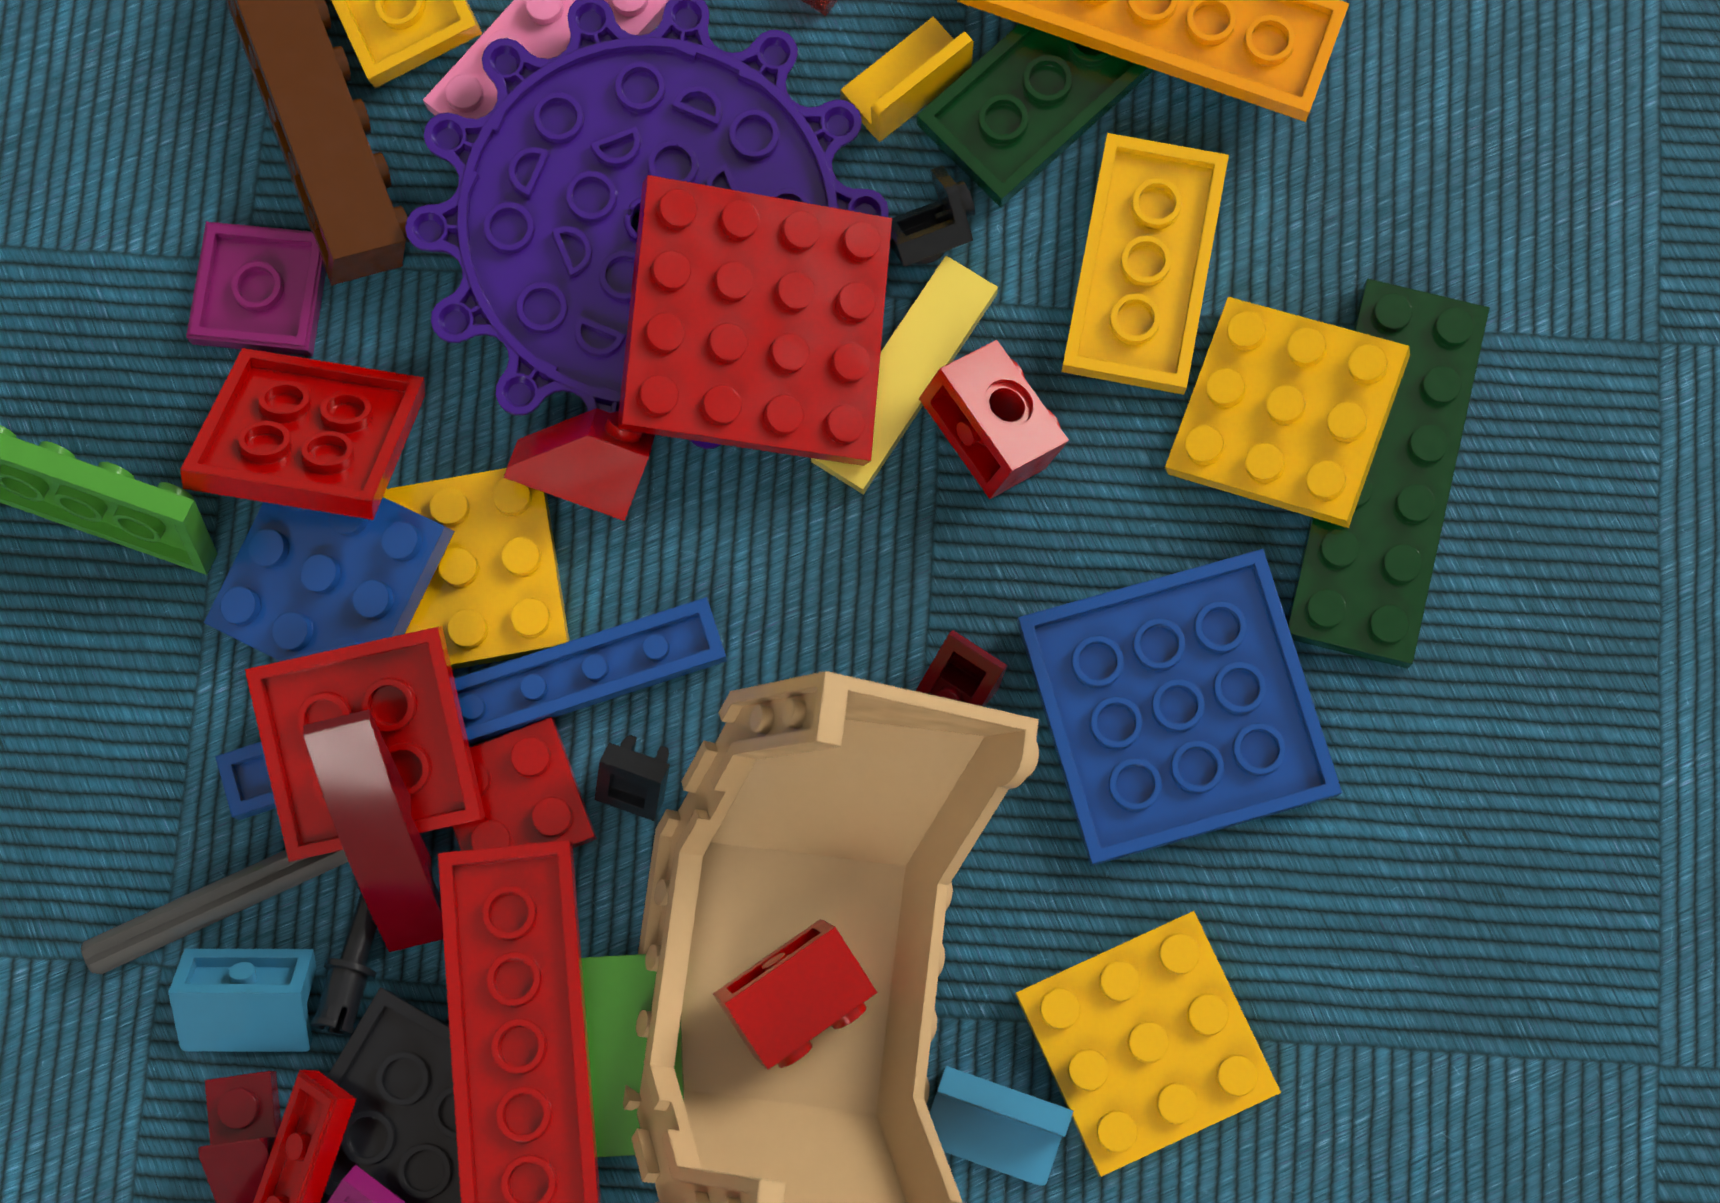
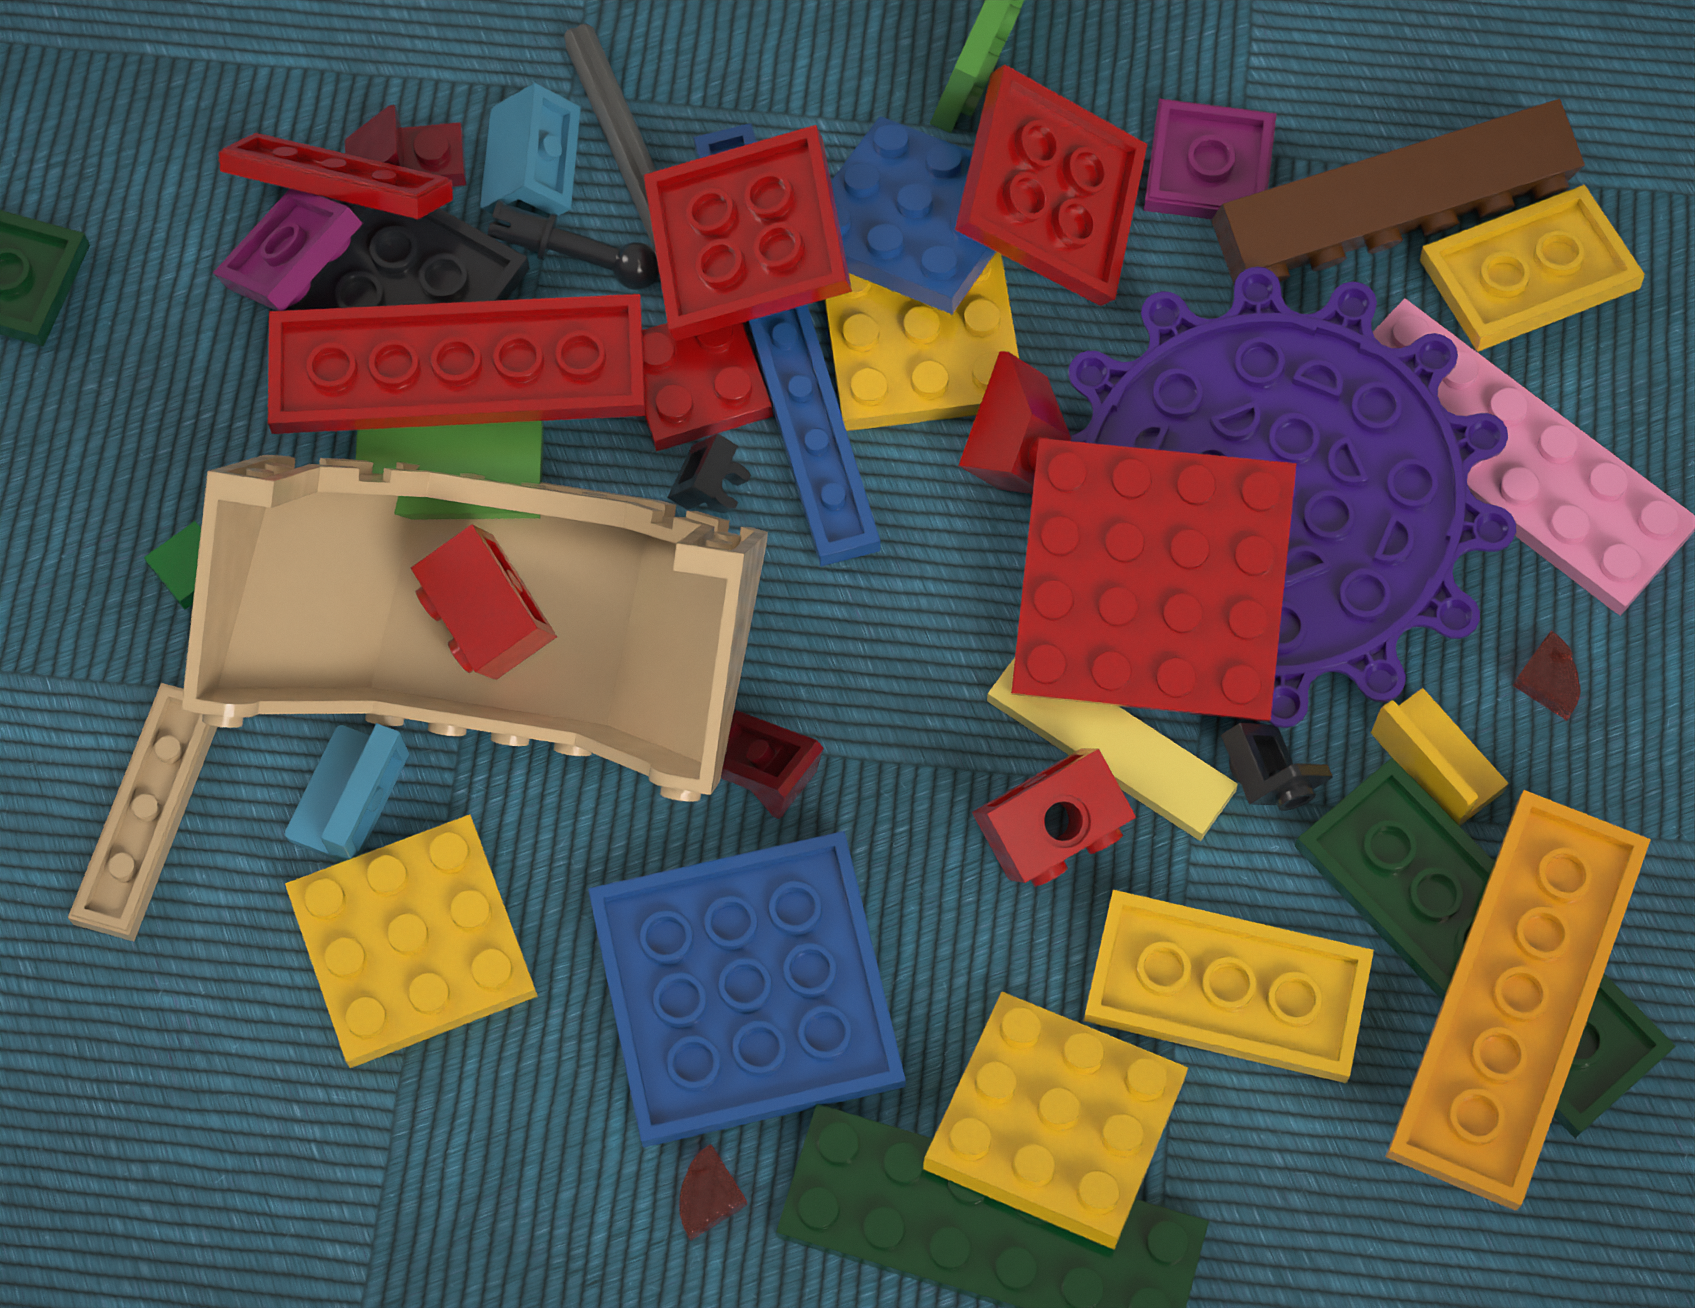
camera: 90 degrees right, 10 degrees down
(376, 828) = (665, 230): dark red slope -> none
(1376, 732) = (708, 1194): none -> clear red tile

